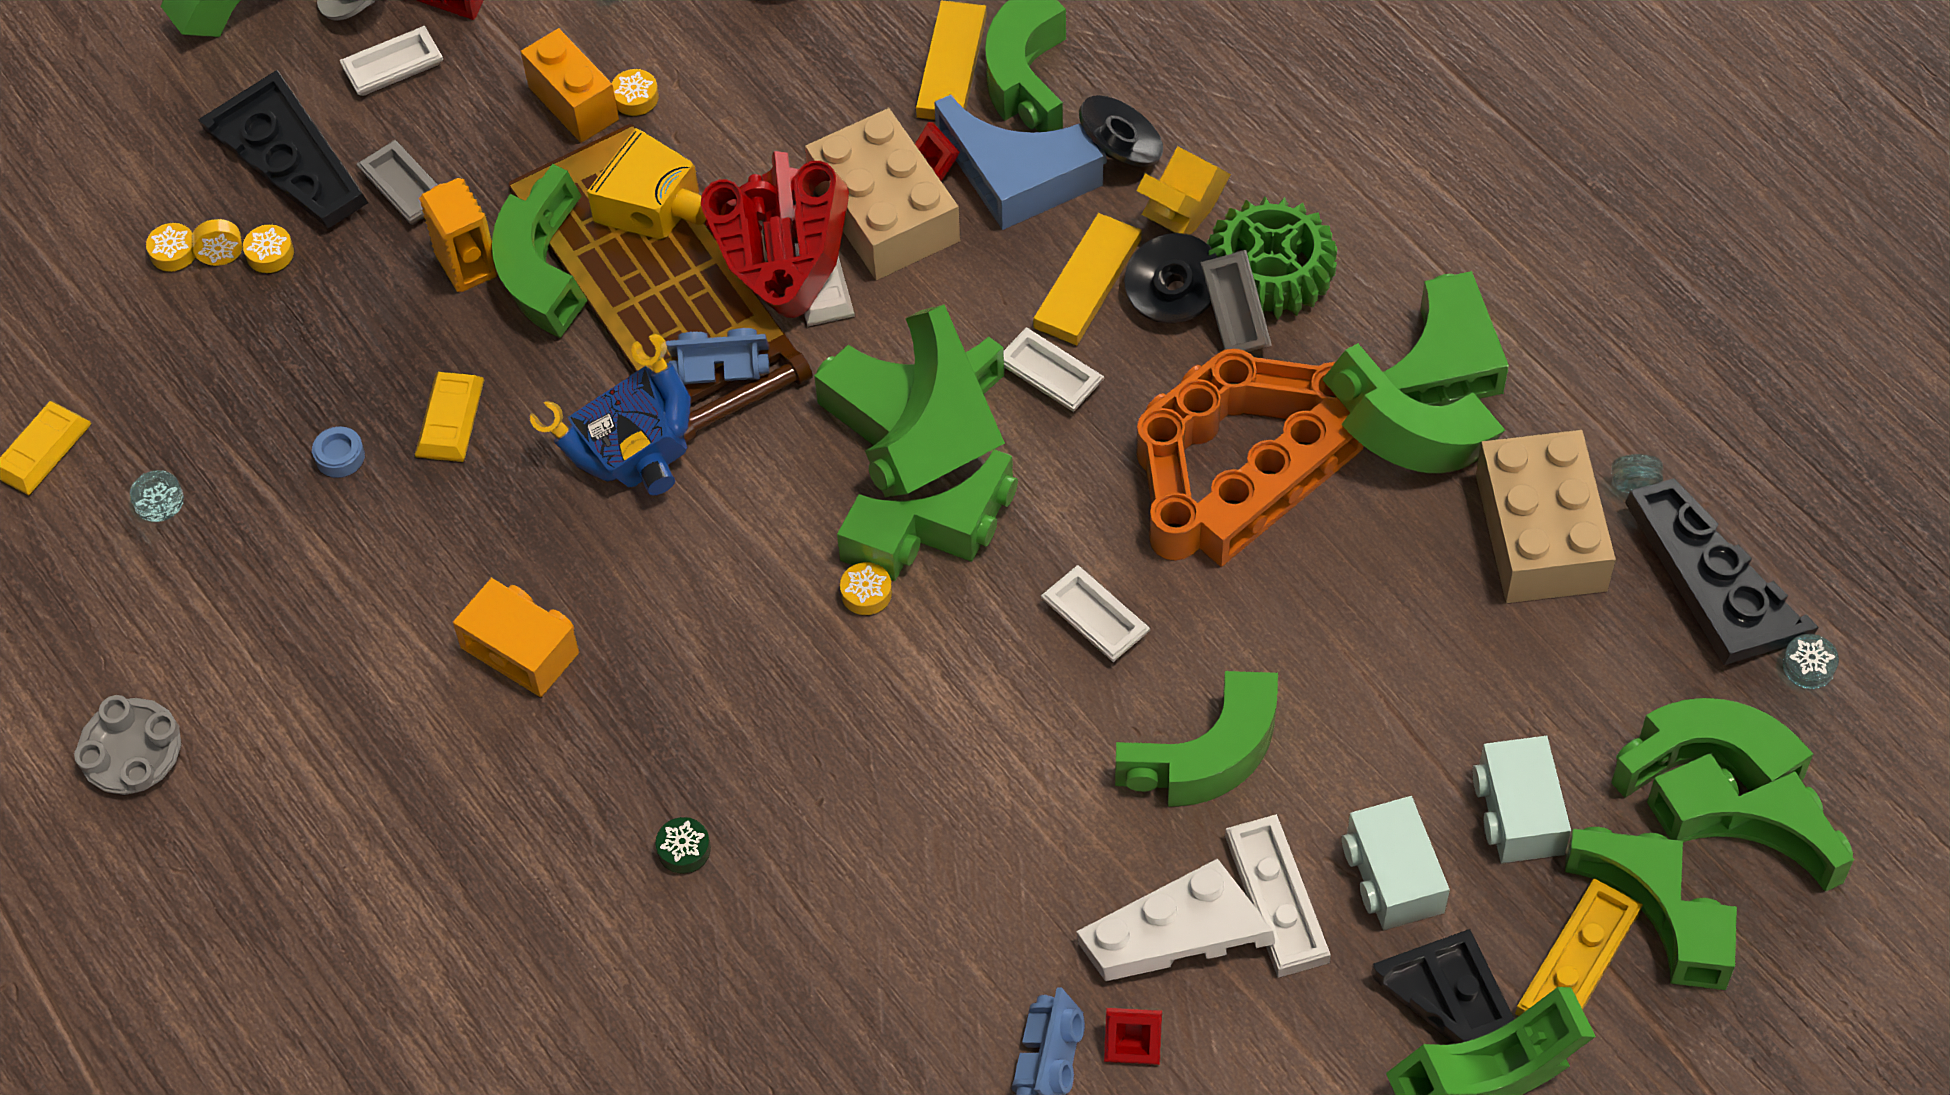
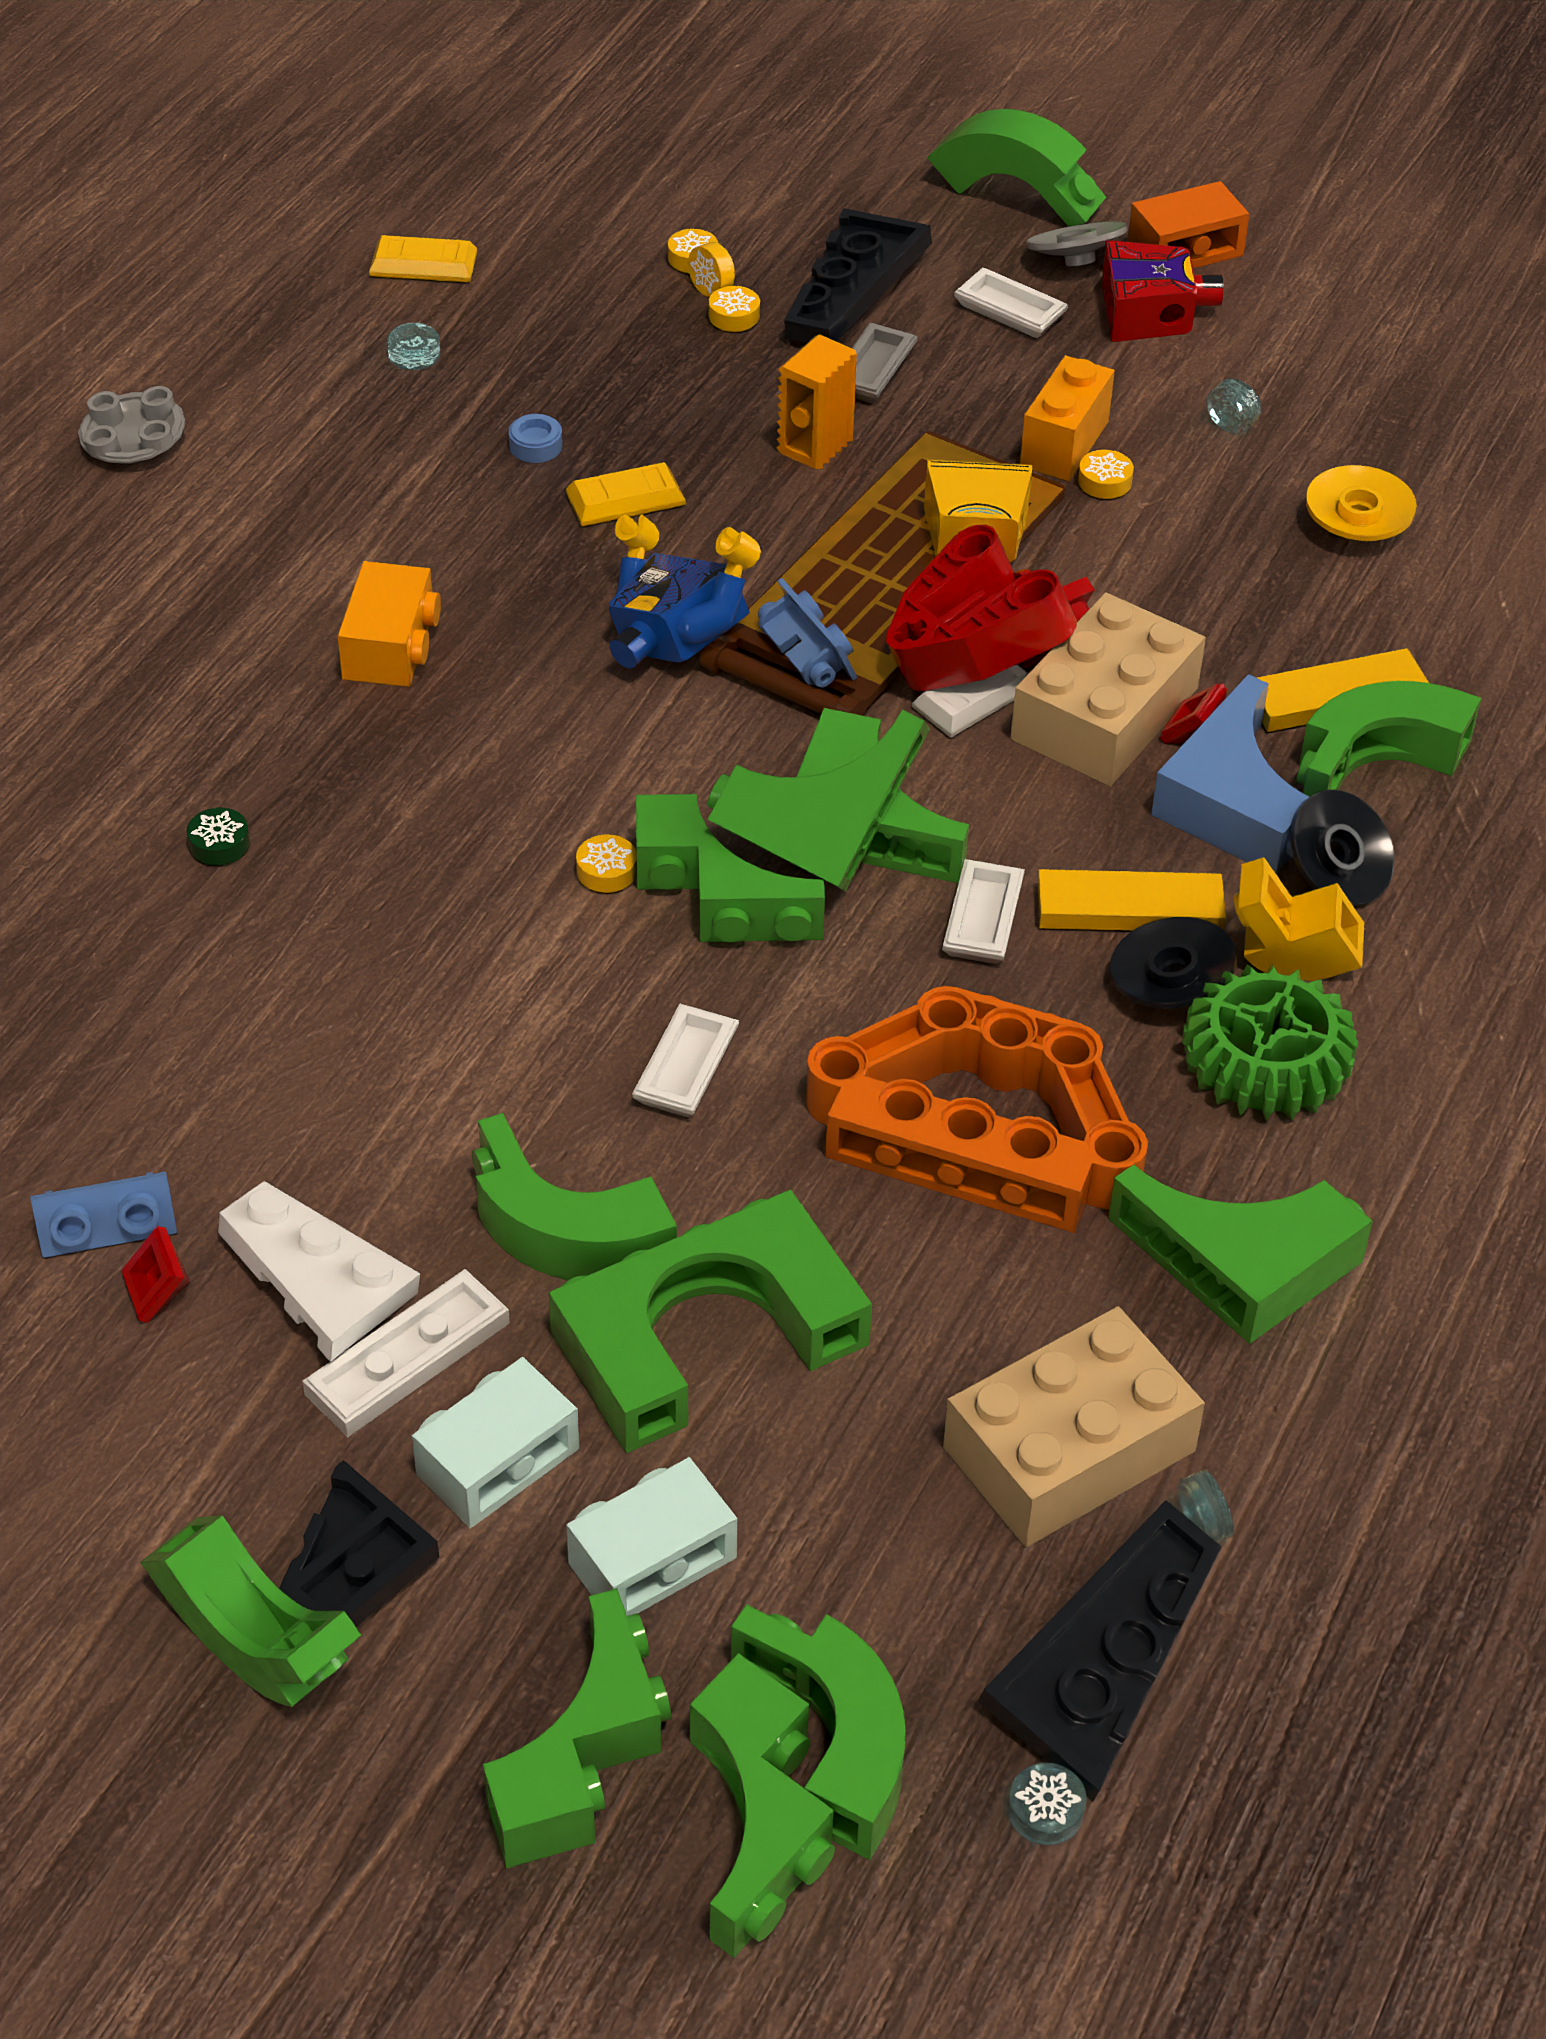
camera: 60 degrees right, 10 degrees down
(520, 250) = (839, 459): bright green arch -> none
(1236, 302) = (1171, 1022): light grey tile -> none
(1326, 752) = (759, 1254): none -> bright green arch
(1403, 429) = (1085, 1237): bright green arch -> none
(1584, 945) = (463, 1683): yellow tile -> none

